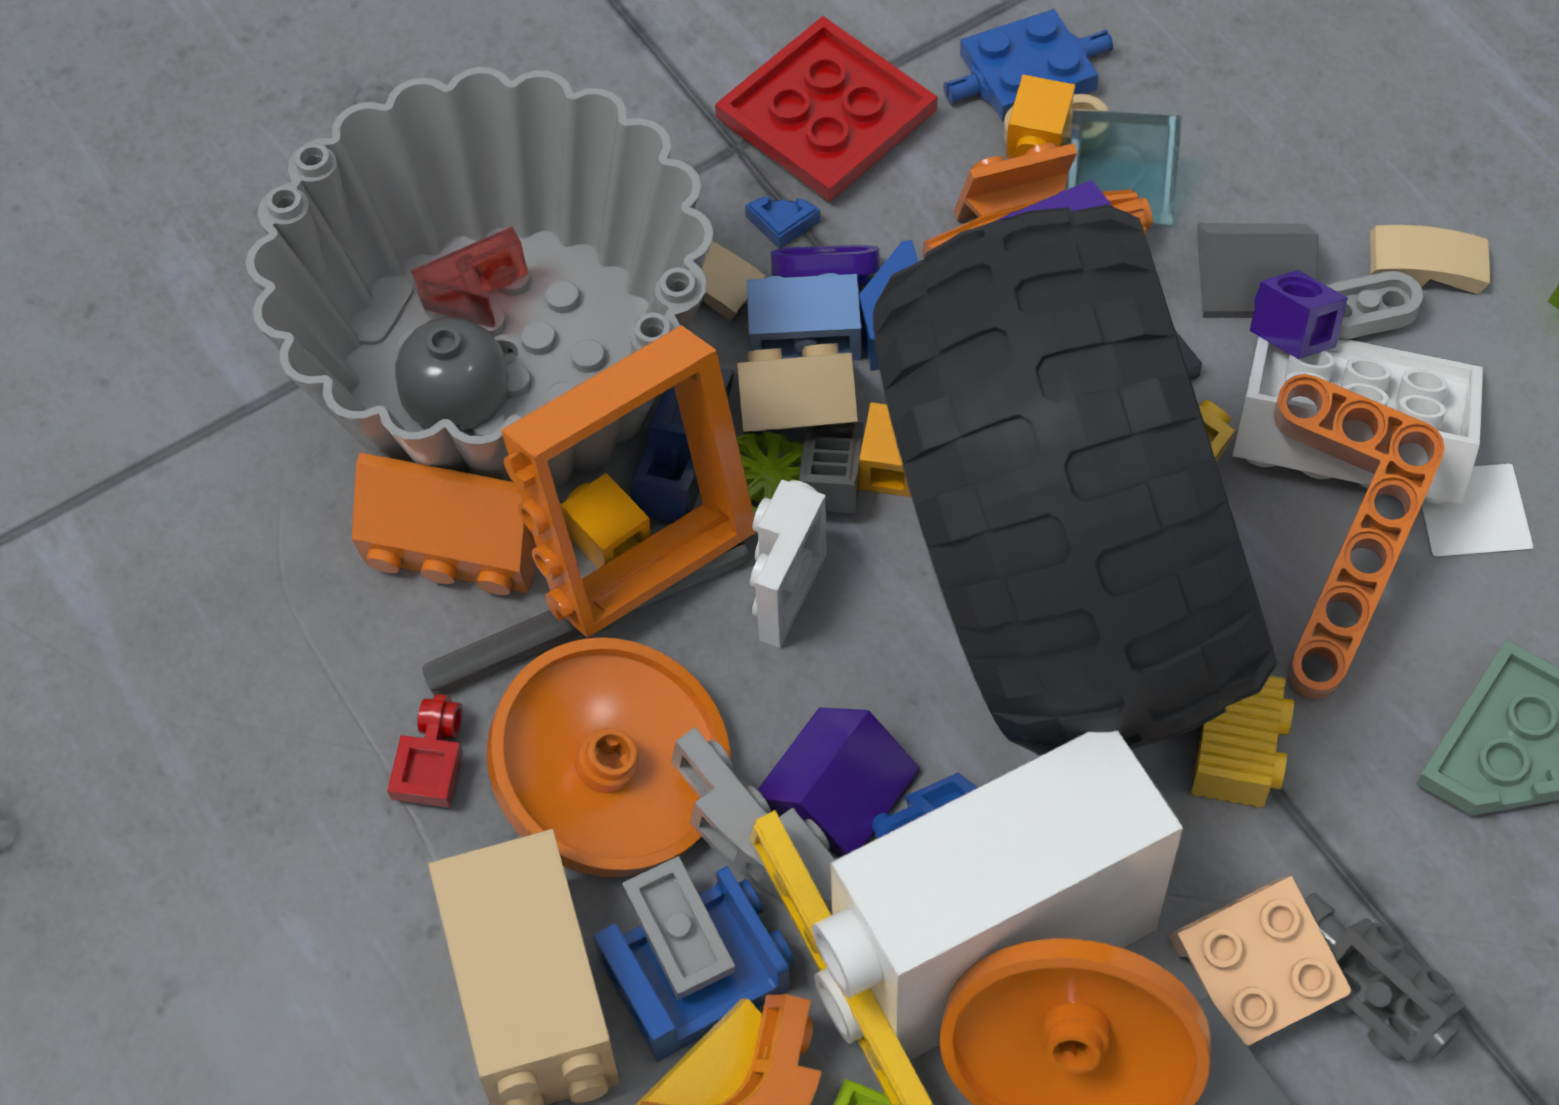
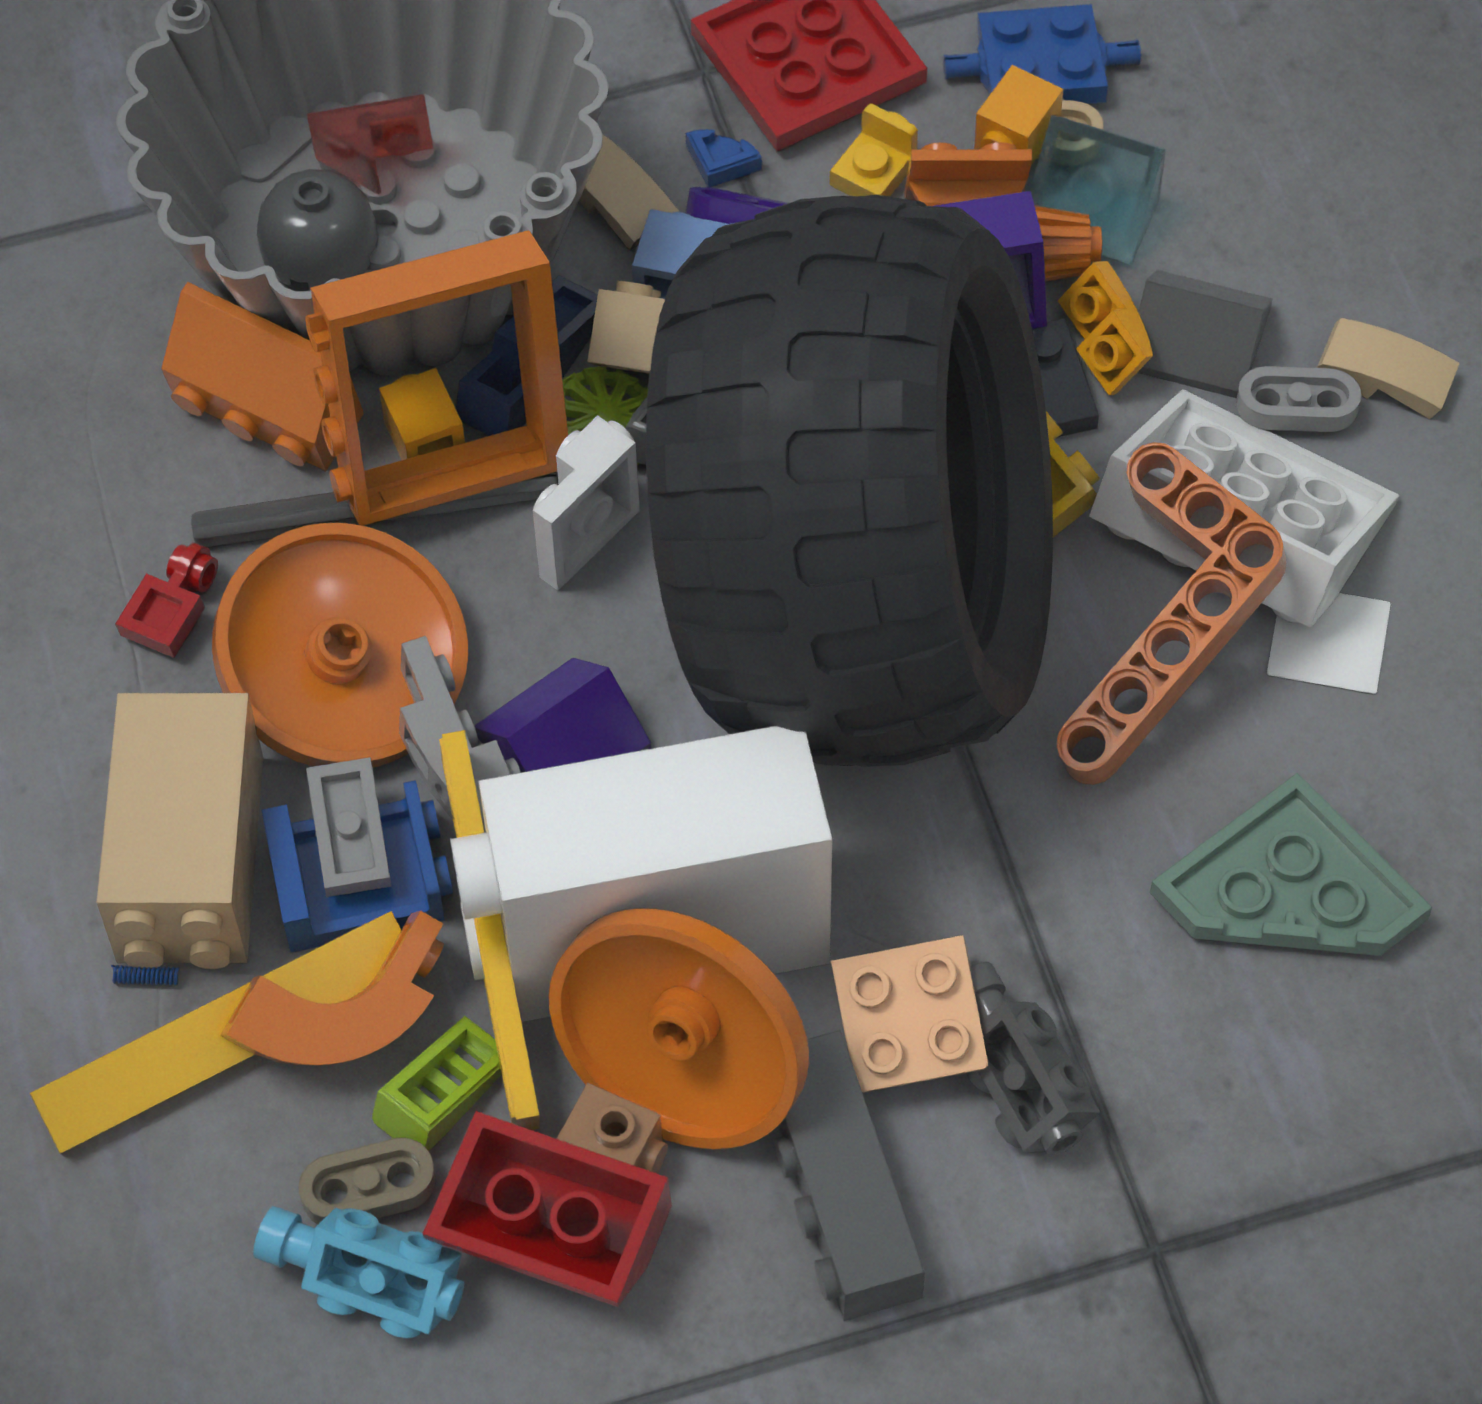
camera: 15 degrees right, 0 degrees up
(921, 185) = (878, 156): none -> yellow bracket
(1190, 287) = (1110, 324): none -> light orange slope
(1239, 748) = (981, 798): yellow brick -> none
(1298, 314) = (1213, 388): dark purple brick -> none

